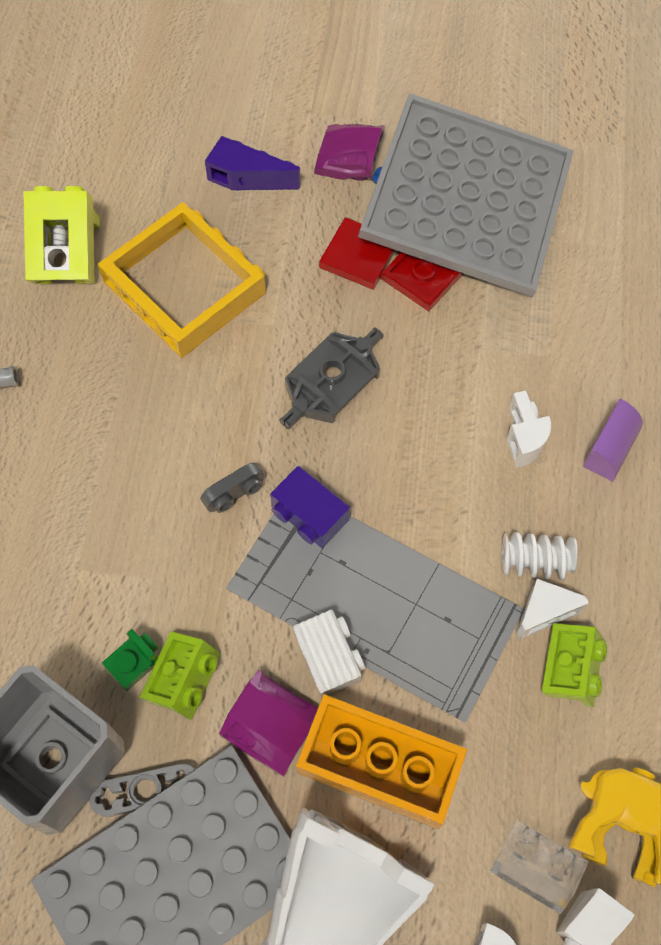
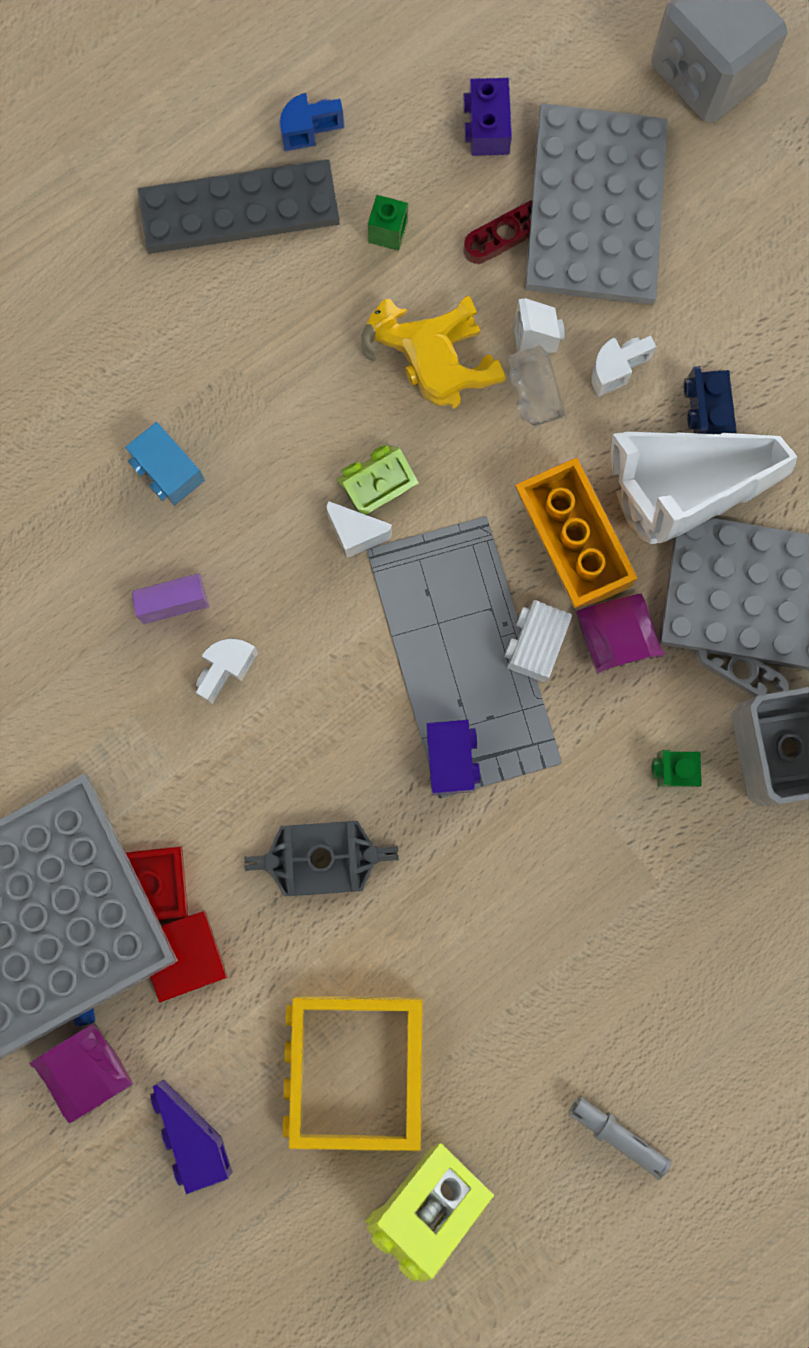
camera: 135 degrees left, 15 degrees up
(181, 674) = (653, 724): lime bracket -> none
(223, 493) = (474, 828): dark grey plate -> none
(539, 555) = (321, 569): white piece -> none

